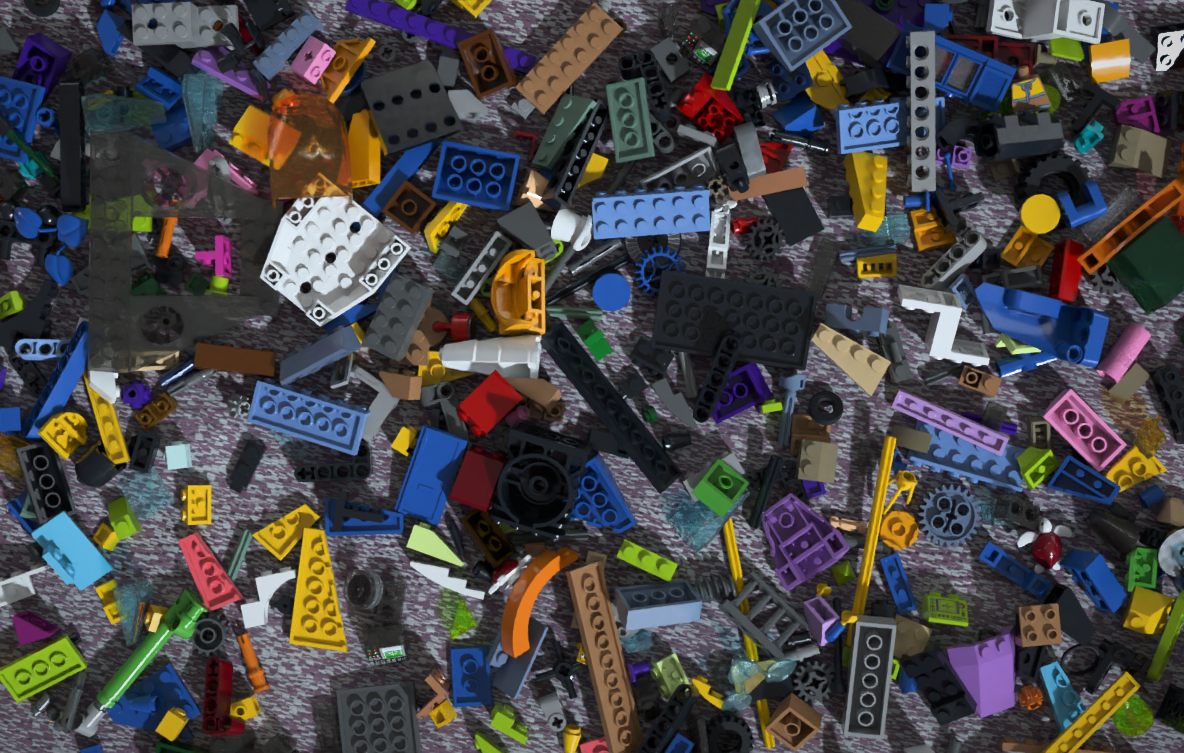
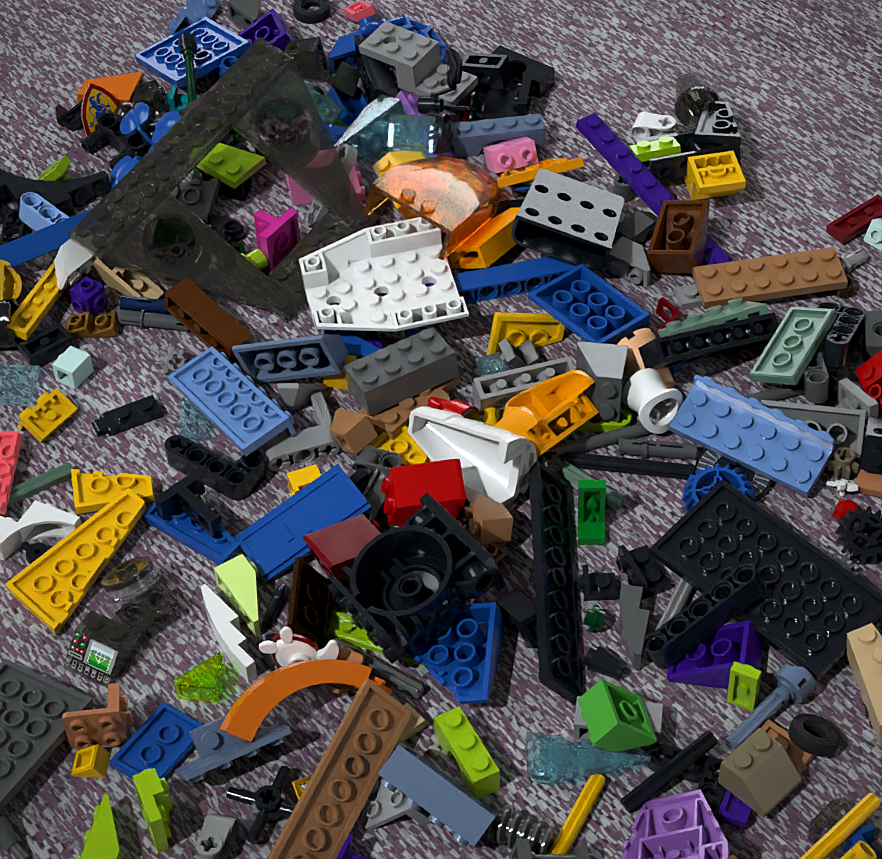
camera: 40 degrees right, 40 degrees down
(140, 73) = (345, 79): none -> pearl dark grey slope
(166, 235) = (258, 197): orange pin -> none
(236, 96) = (413, 132): none -> clear light blue slope
(410, 208) = (494, 295): reddish brown brick -> none
(594, 170) = (719, 368): yellow slope -> none
(611, 291) = (648, 487): blue tile -> none
(639, 642) = (382, 836): clear light blue cone -> none
(718, 244) = (811, 510): white slope -> none

